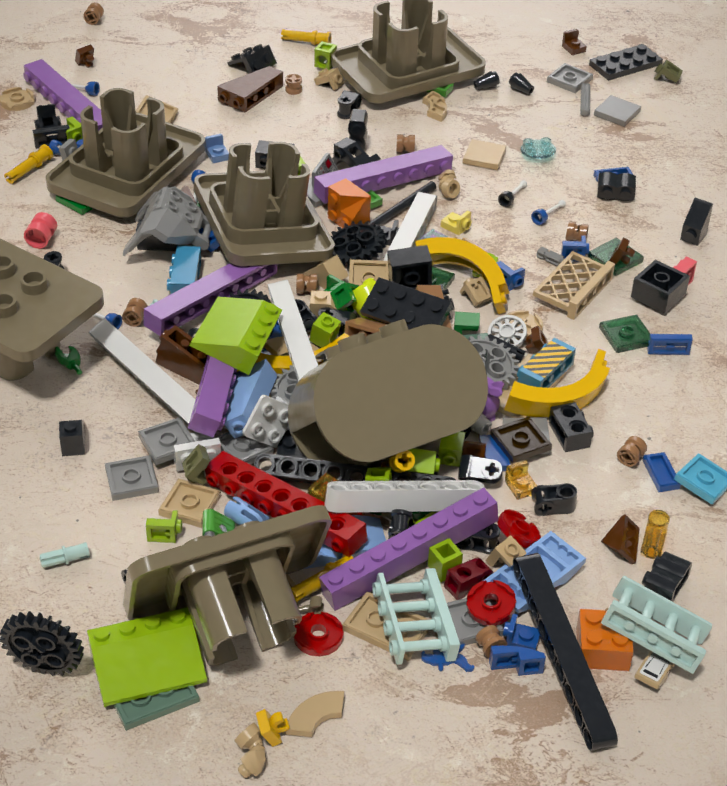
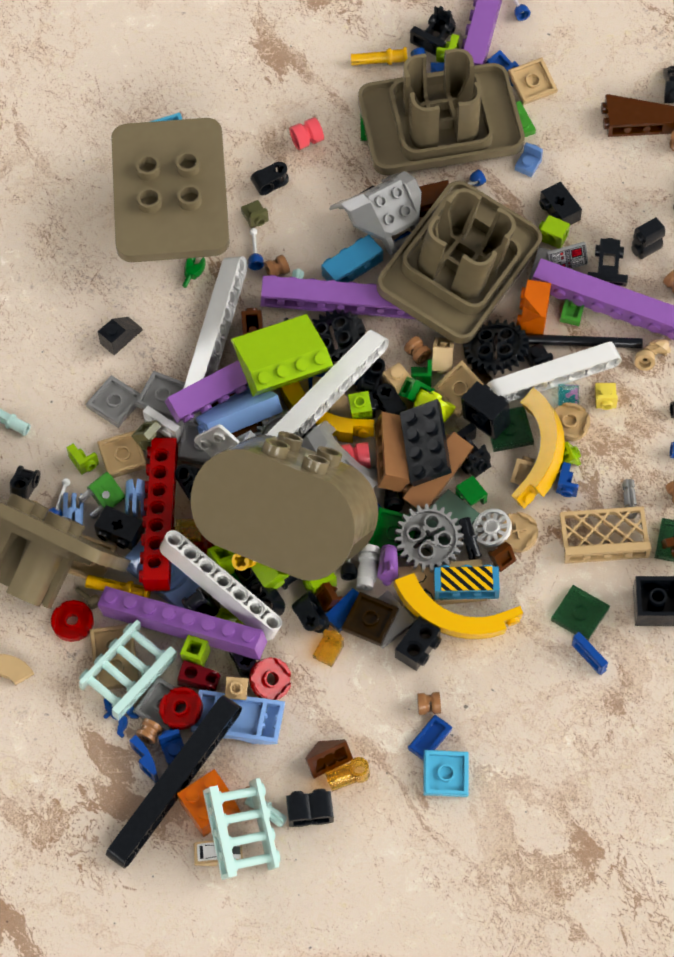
camera: 55 degrees right, 20 degrees up
(556, 499) = (323, 680): black piece -> none
(579, 247) = (651, 509): blue bracket -> none

